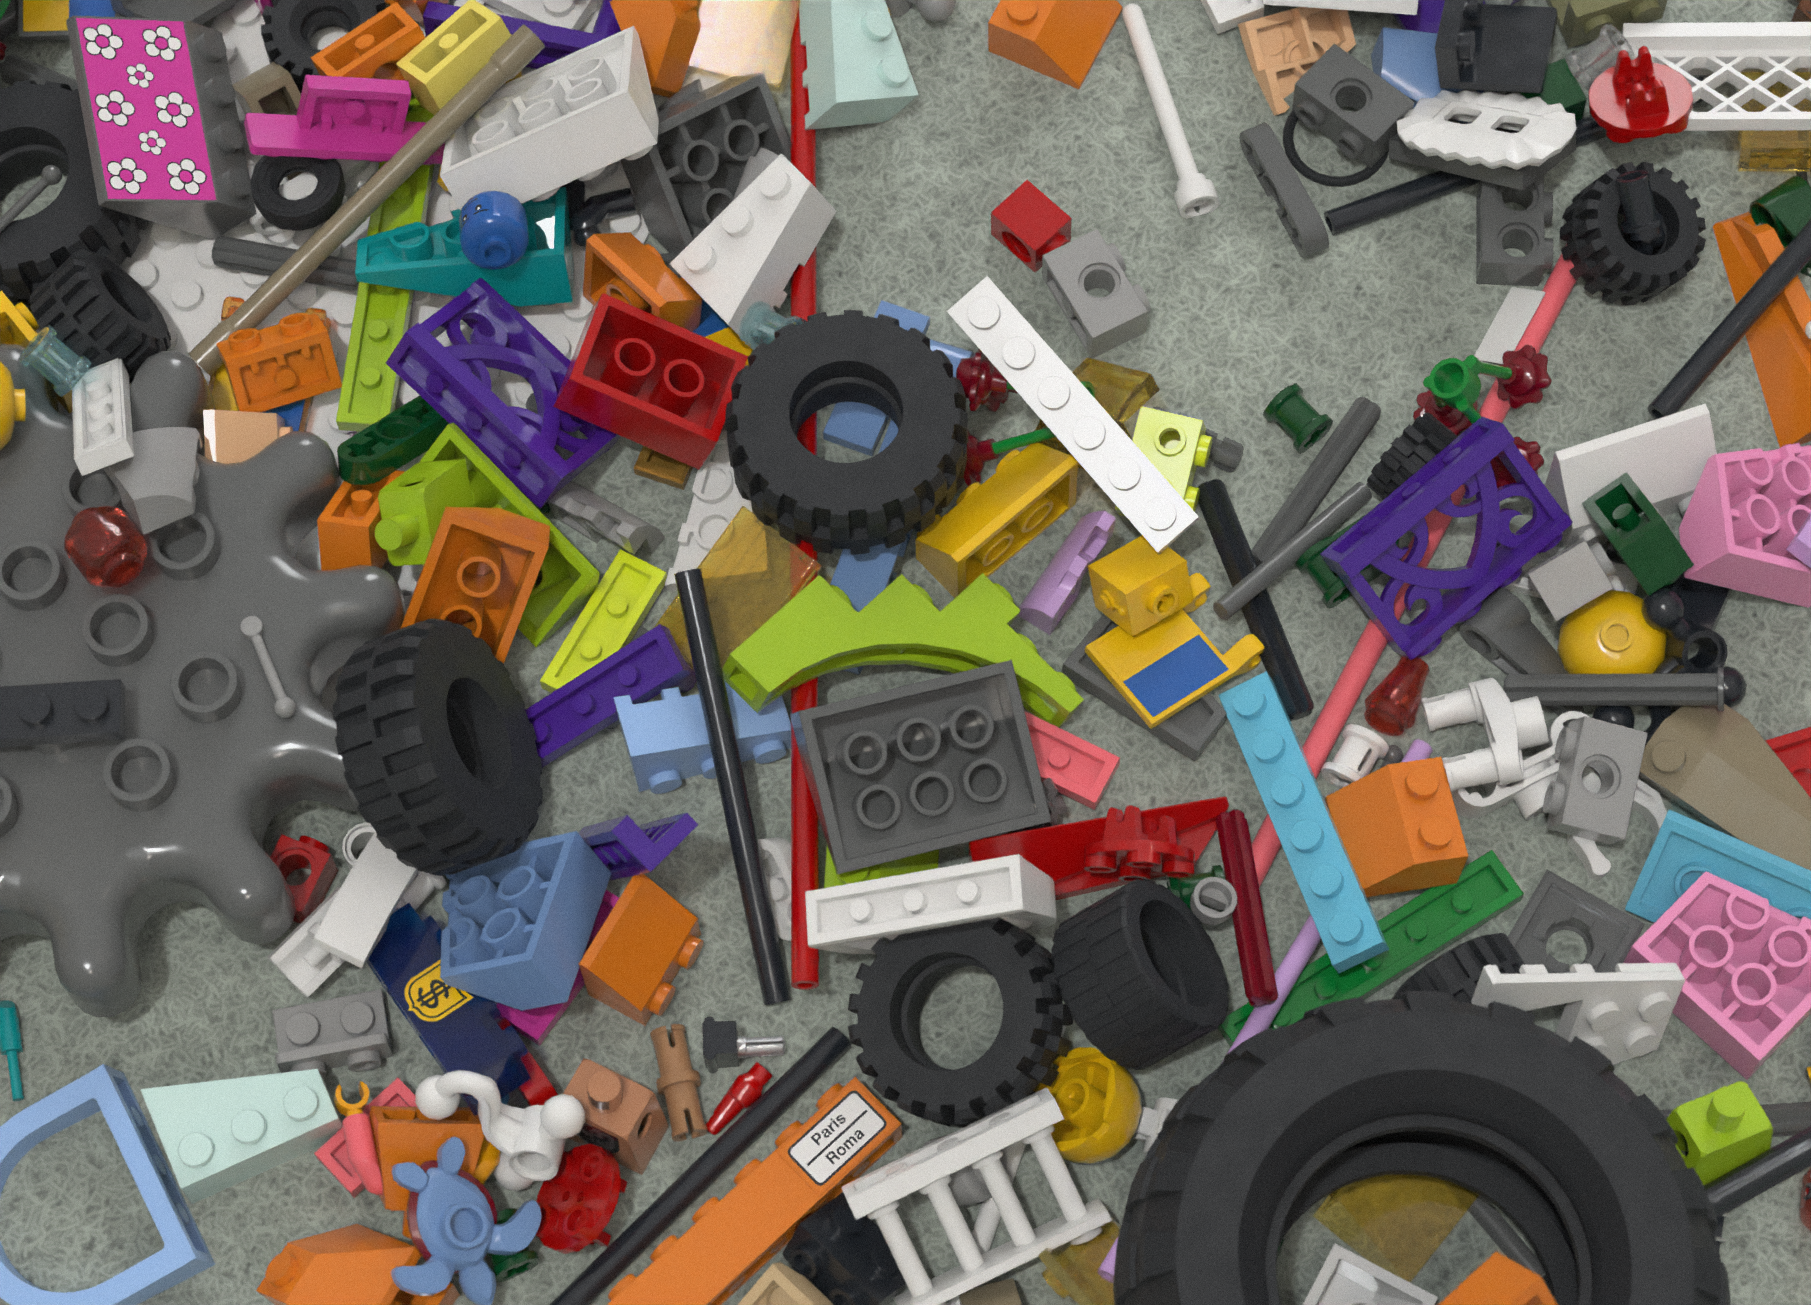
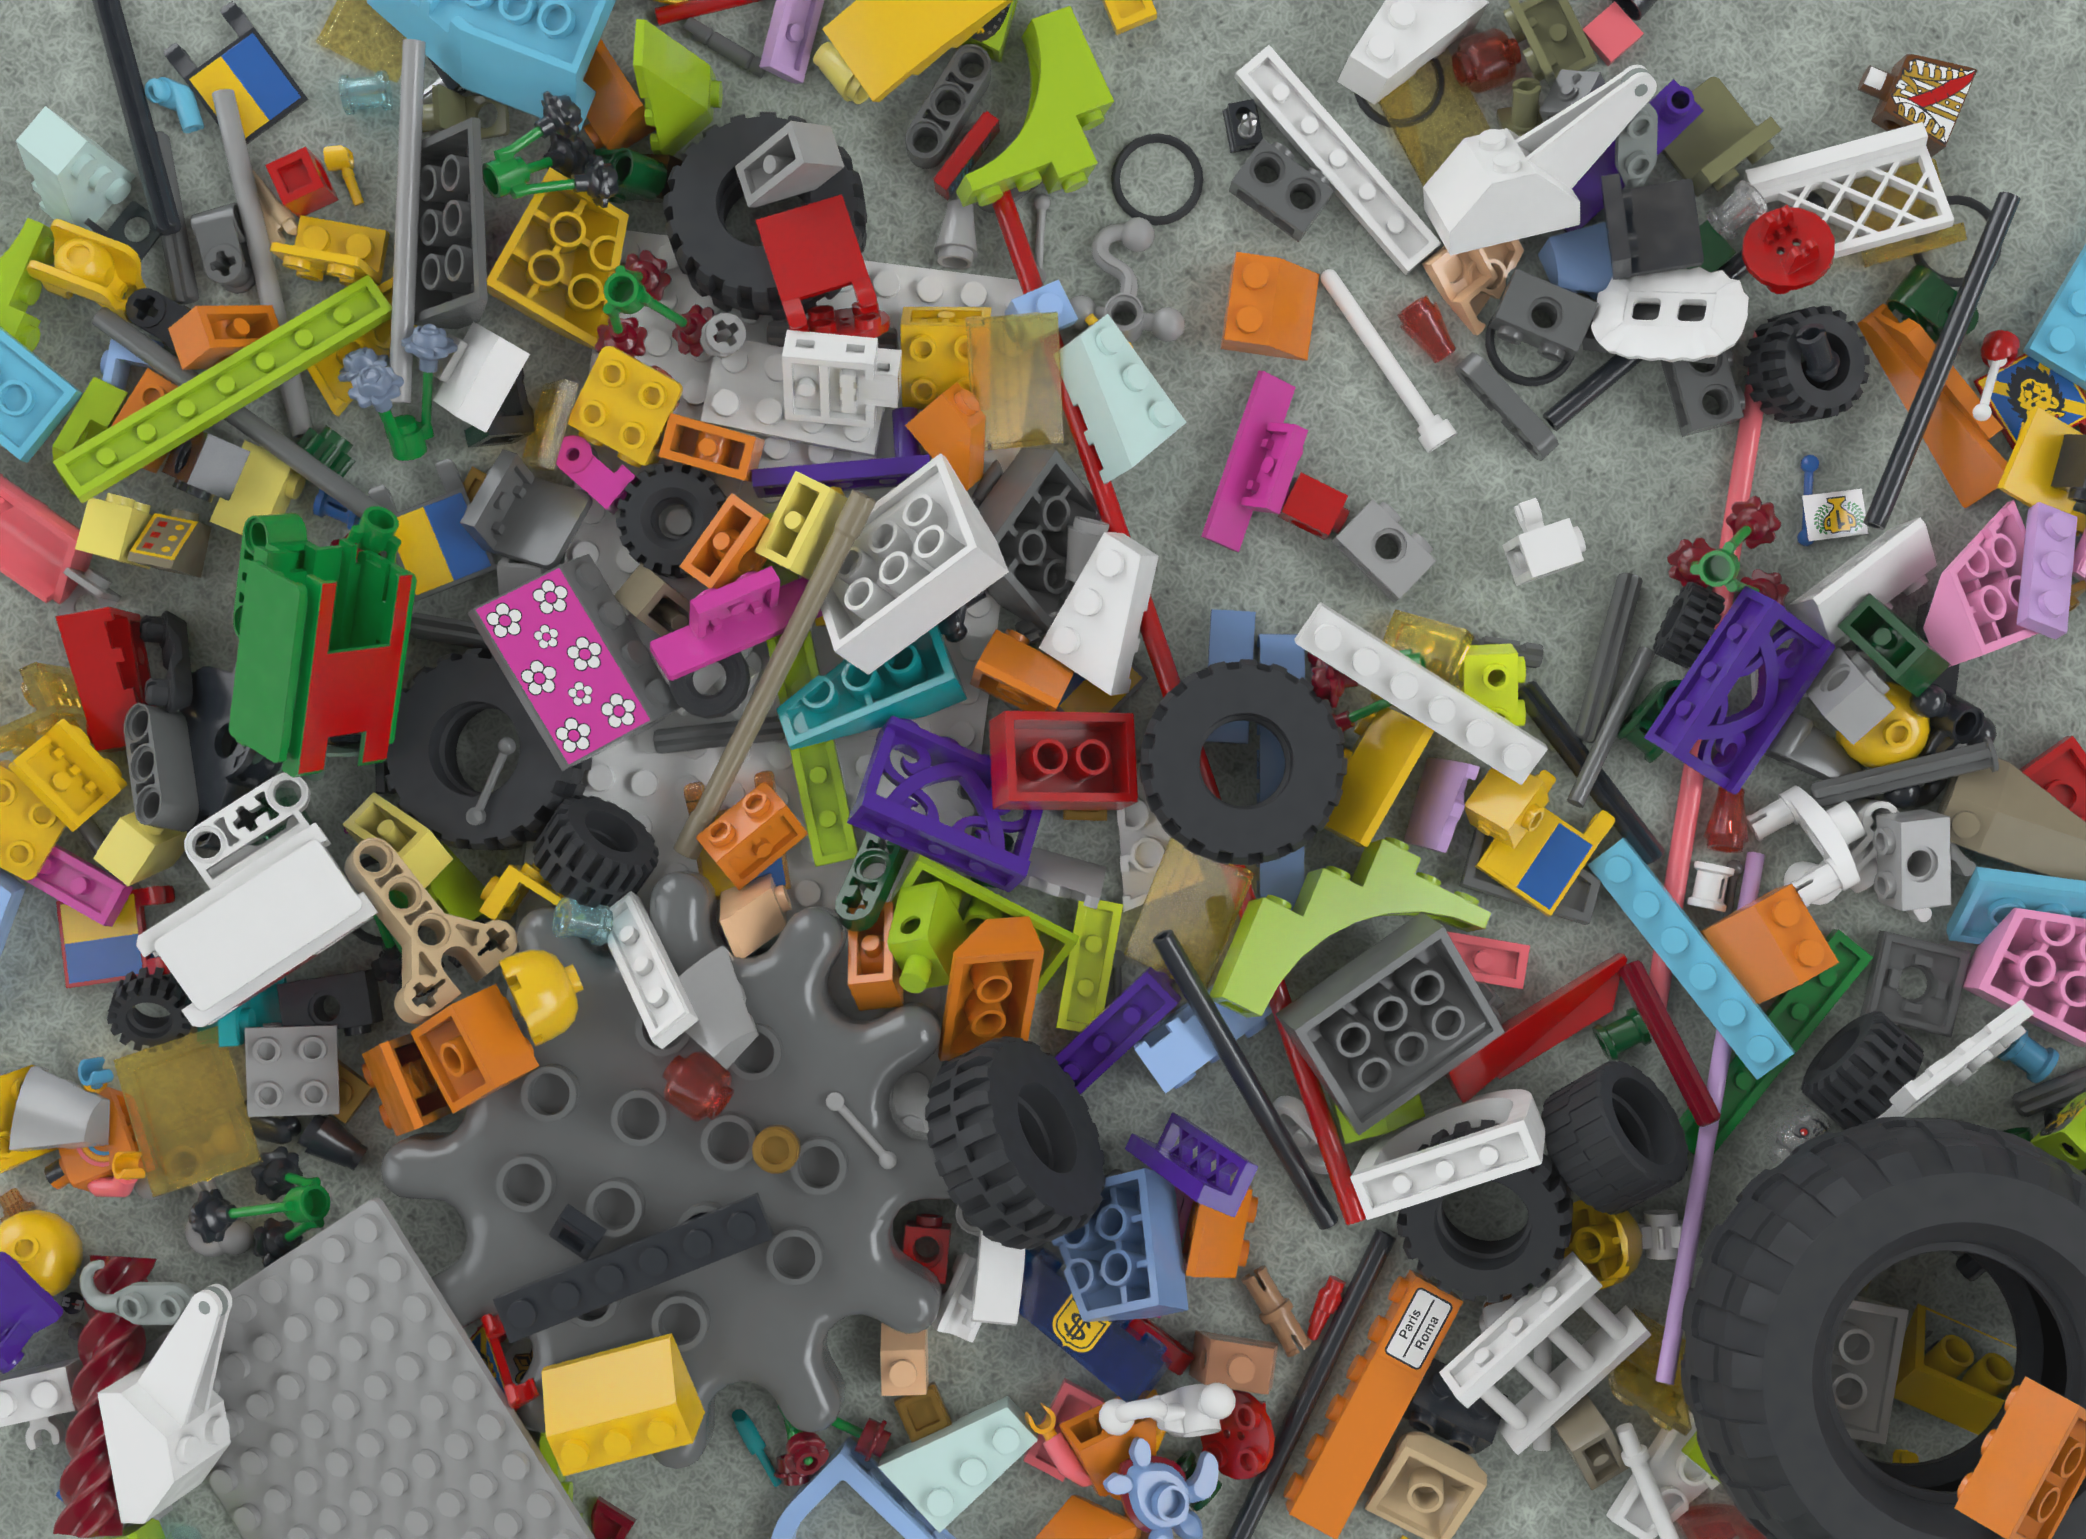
camera: 20 degrees left, 20 degrees up
(65, 1029) = (808, 1453): none -> dark red plant
(164, 643) = (776, 1149): none -> pearl gold tile
(219, 1060) = (923, 1413): none -> pearl gold tile
(224, 985) = (903, 1362): none -> light nougat slope
(333, 1034) = (999, 1362): light grey bracket -> none
(493, 226) = (895, 682): blue head -> none
(724, 1047) = (1302, 1272): black piece -> none
(765, 321) = (1145, 681): clear light blue bush -> none
(982, 166) = (1258, 463): none -> dark pink bracket
(1139, 848) = (1583, 1033): red plate -> none
(1216, 894) = (1647, 1041): light grey hinge -> none
(1220, 85) = (1426, 327): none -> clear red cone
(1272, 333) = (1542, 548): none -> white brick
(1297, 418) = (1579, 608): dark green bush -> none
(1509, 324) = (1721, 469): white sticker -> none
(1613, 353) = (1808, 465): none -> blue hinge
(1617, 405) = (1834, 514): none -> sticker
(1681, 1065) = (2031, 1058): none -> dark azure bush

